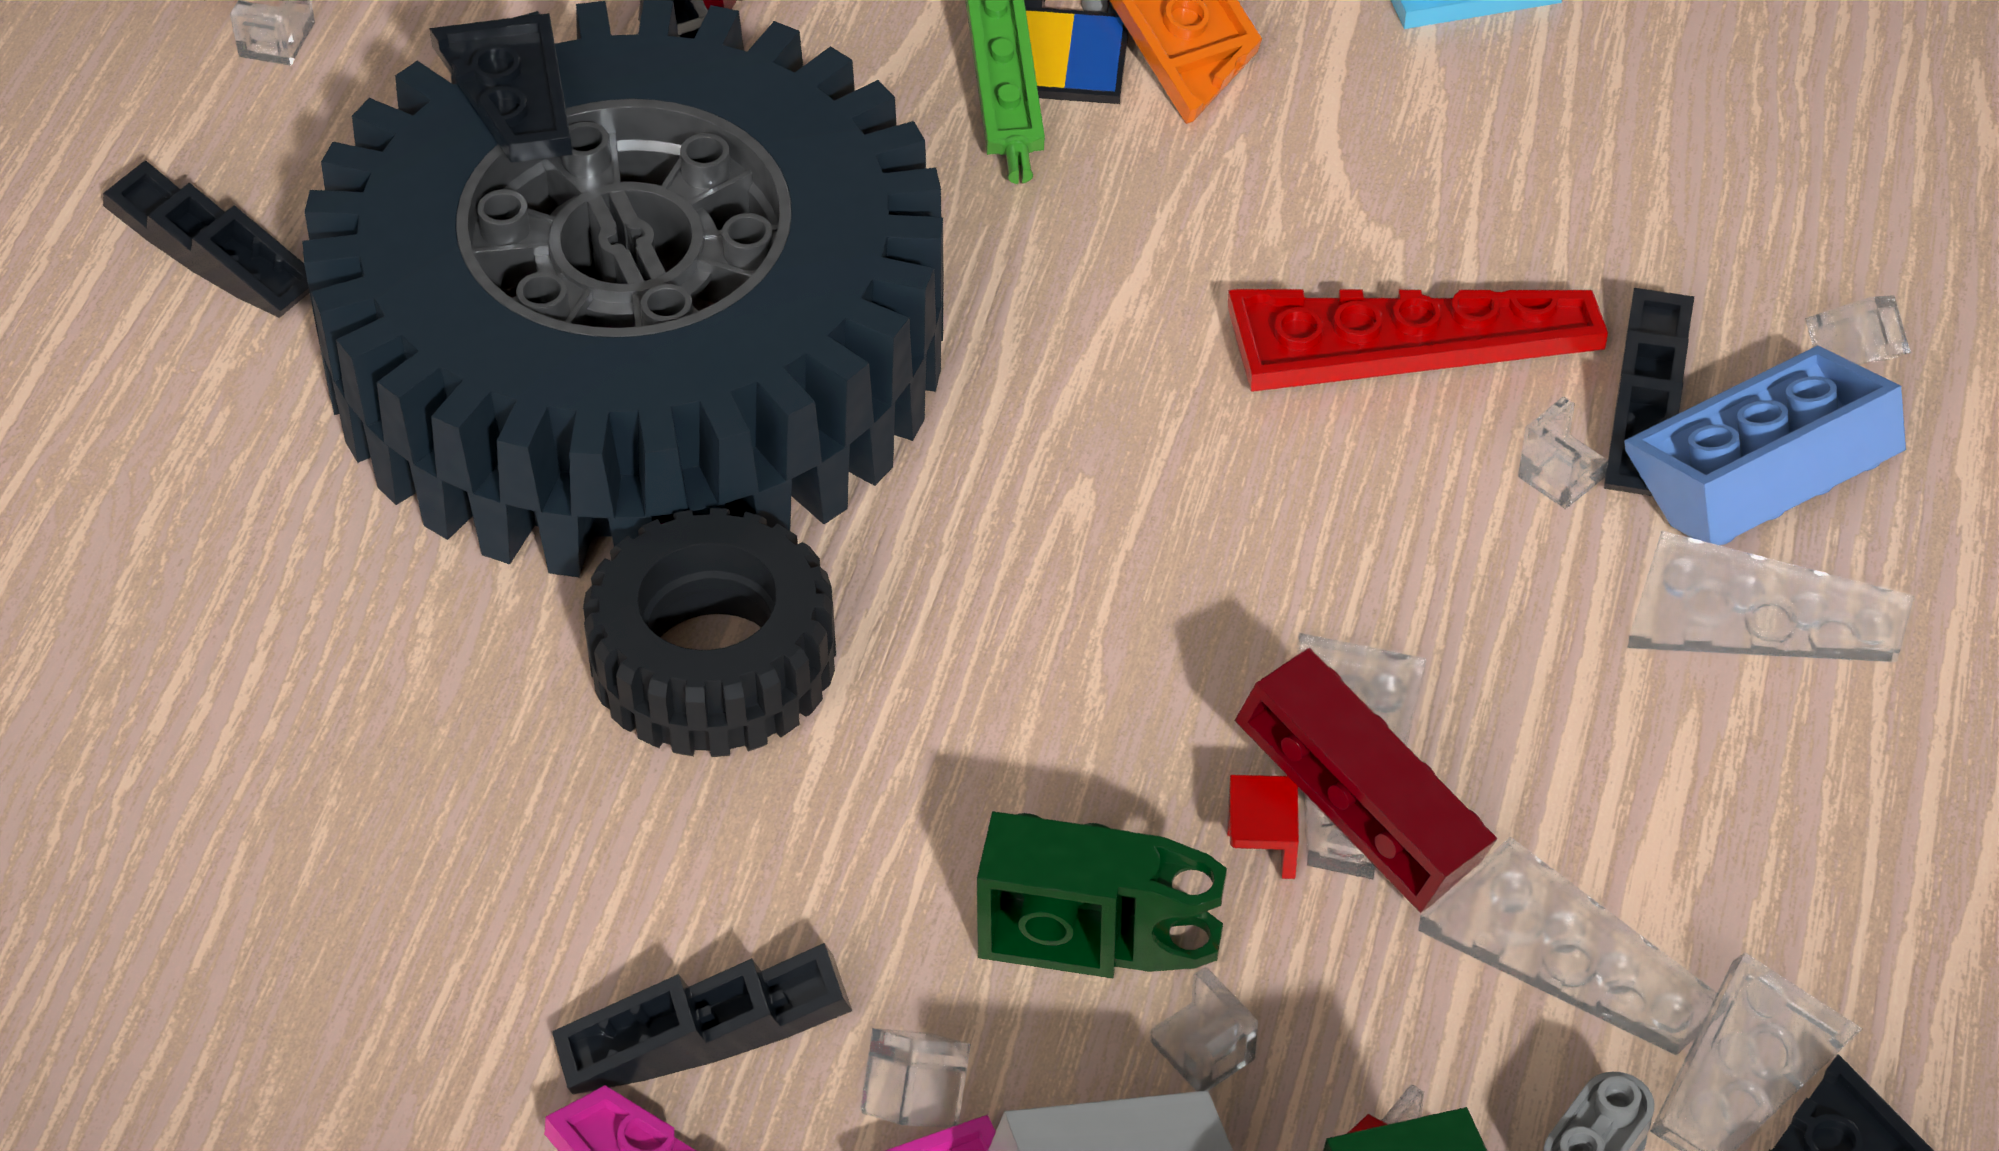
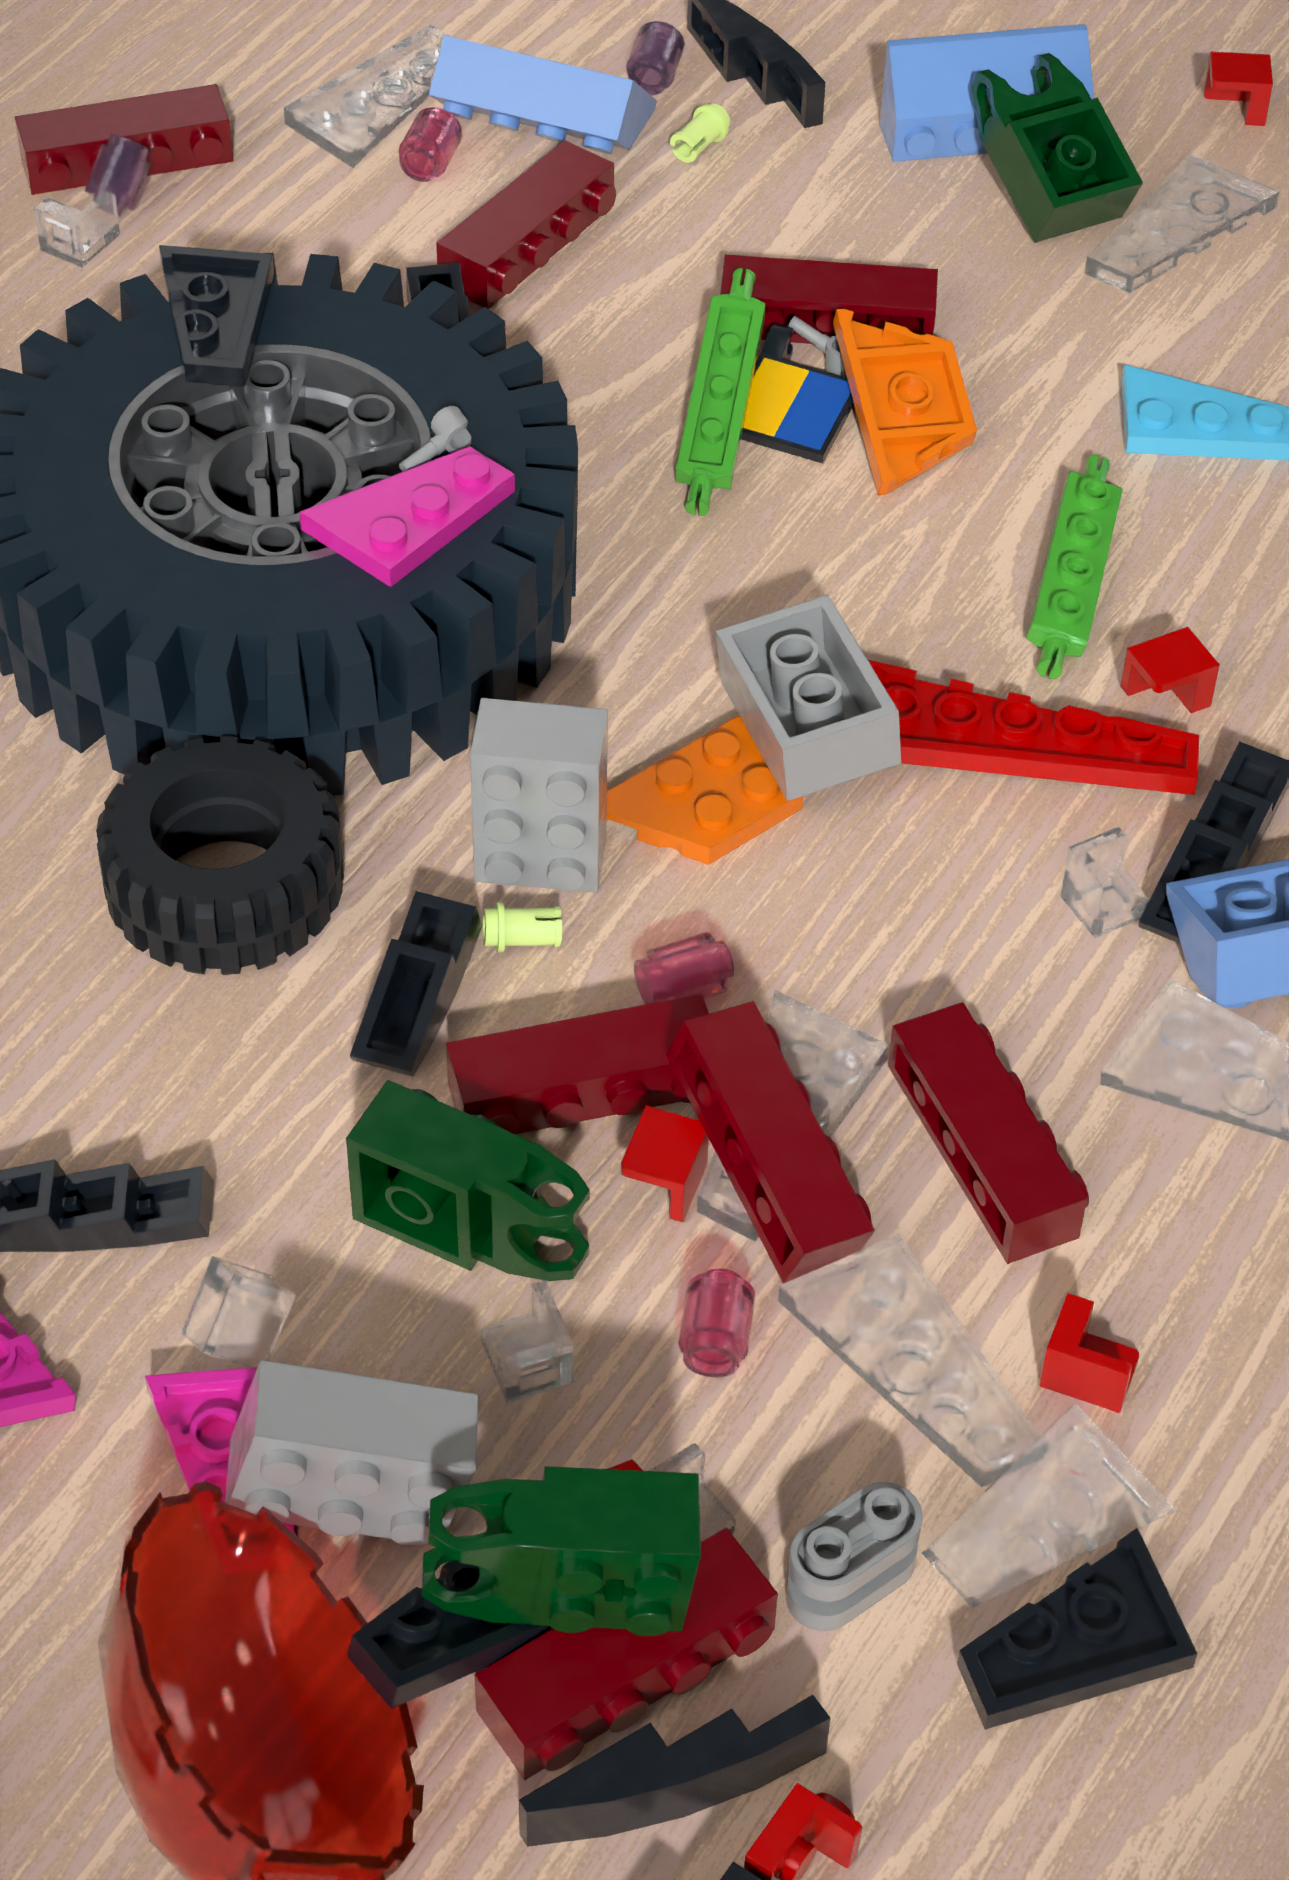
camera: 15 degrees right, 0 degrees up
(792, 248) = (409, 515): none -> dark pink wing
(799, 154) = (450, 435): none -> light grey hand
(950, 712) = (417, 983): none -> black slope
(1011, 496) = (539, 794): none -> light grey brick
(1026, 631) = (521, 927): none -> yellowish green pin
(1143, 752) = (572, 1067): none -> dark red brick
(1150, 453) = (703, 796): none -> orange wing
(1203, 637) = (684, 969): none -> clear pink brick
(1224, 339) = (808, 697): none -> light grey brick
(1374, 965) = (716, 1322): none -> clear pink brick
(1405, 152) = (1074, 566): none -> bright green plate
(1544, 228) = (1172, 663): none -> red panel
(1549, 719) = (987, 1132): none -> dark red brick
(1726, 915) = (1085, 1363): none -> red panel

